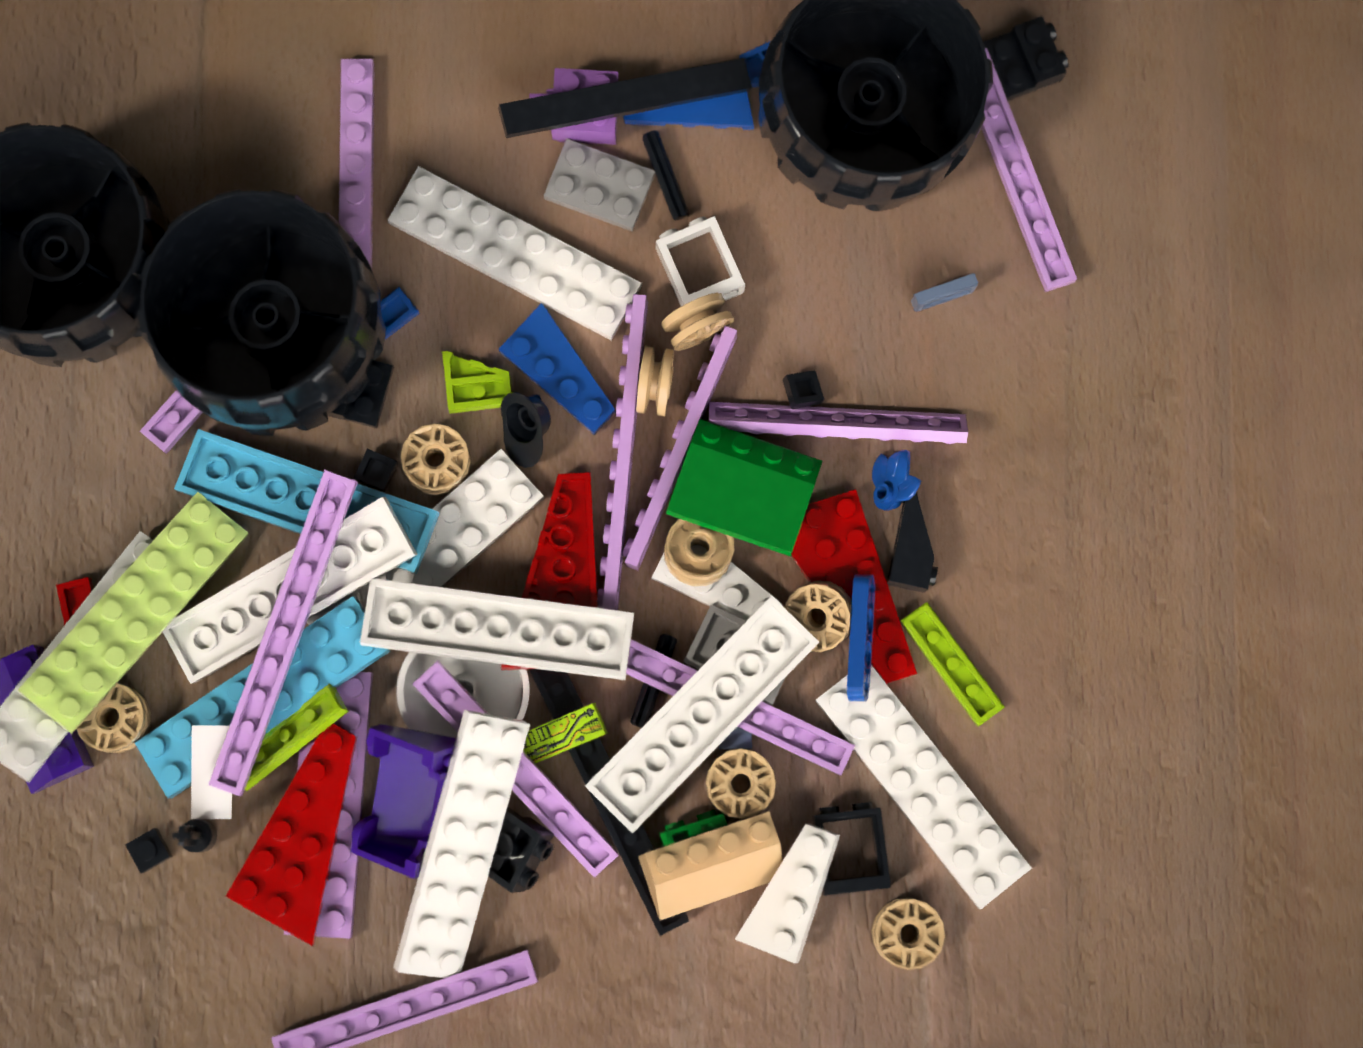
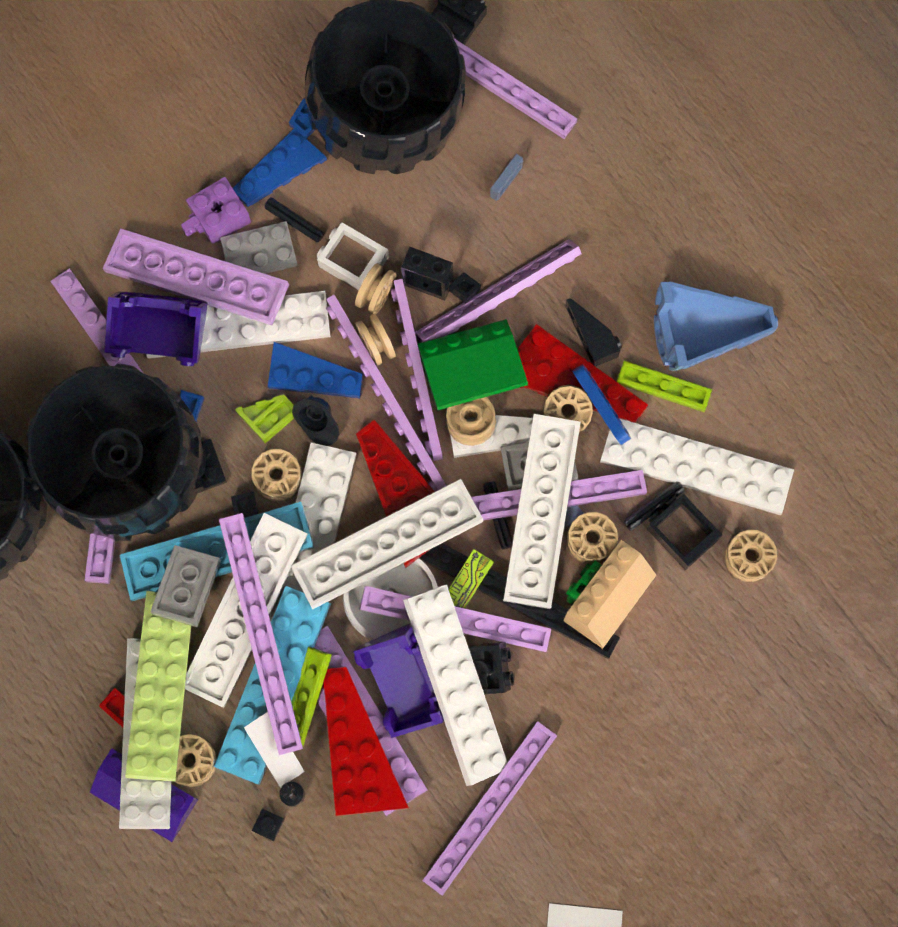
camera: 30 degrees left, 5 degrees down
(241, 518) = (185, 586): none -> light grey plate
(417, 192) = (155, 326): none -> dark purple windscreen
(505, 168) = (196, 276): none -> lavender plate
(624, 97) = (240, 188): black tile -> none
(764, 333) = (426, 268): none -> black window
(790, 900) = (670, 585): white wing -> none
(839, 795) = (653, 506): none -> black axle
(893, 480) = (553, 302): blue plate -> none
(1050, 629) = (705, 324): none -> medium blue cone

